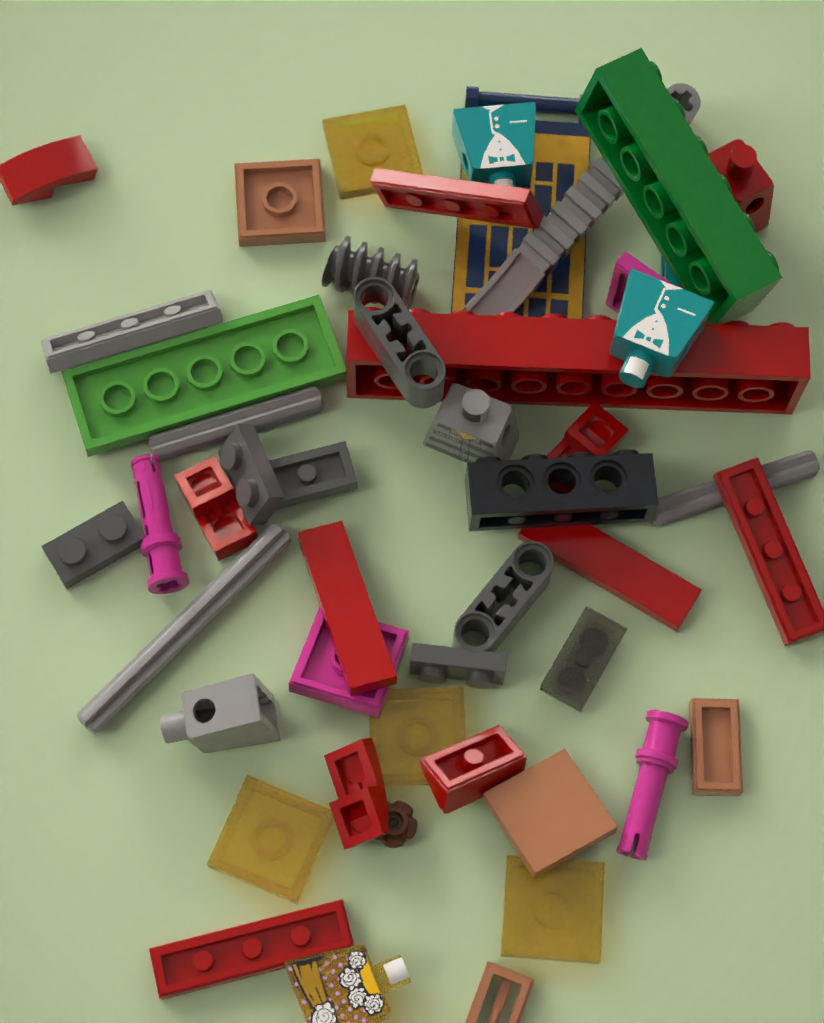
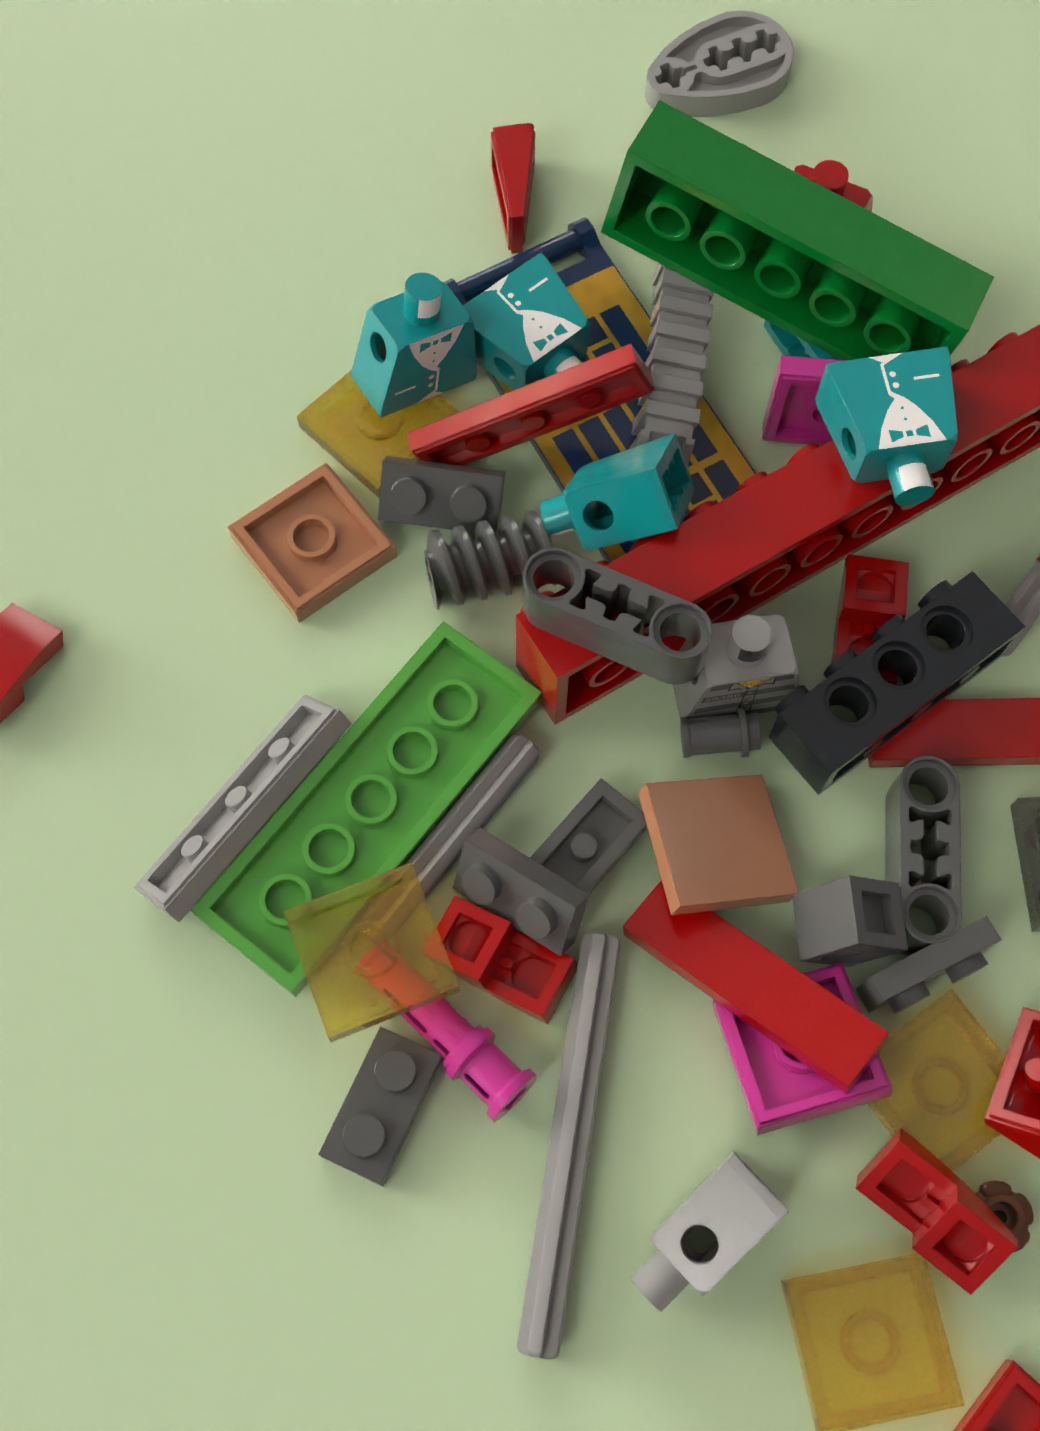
camera: 30 degrees left, 0 degrees up
(143, 454) = (371, 952): none -> clear yellow tile
(373, 218) = (439, 494): none -> dark grey plate
(386, 519) = (717, 844): none -> nougat tile
(414, 117) = (414, 346): none -> teal torso
(426, 608) = (849, 921): none -> dark grey brick
(438, 461) = (721, 734): none -> dark grey pin
(457, 280) = (624, 496): none -> teal torso
(568, 41) = (513, 176): none -> red slope
(768, 65) = (690, 67): none -> light grey piece

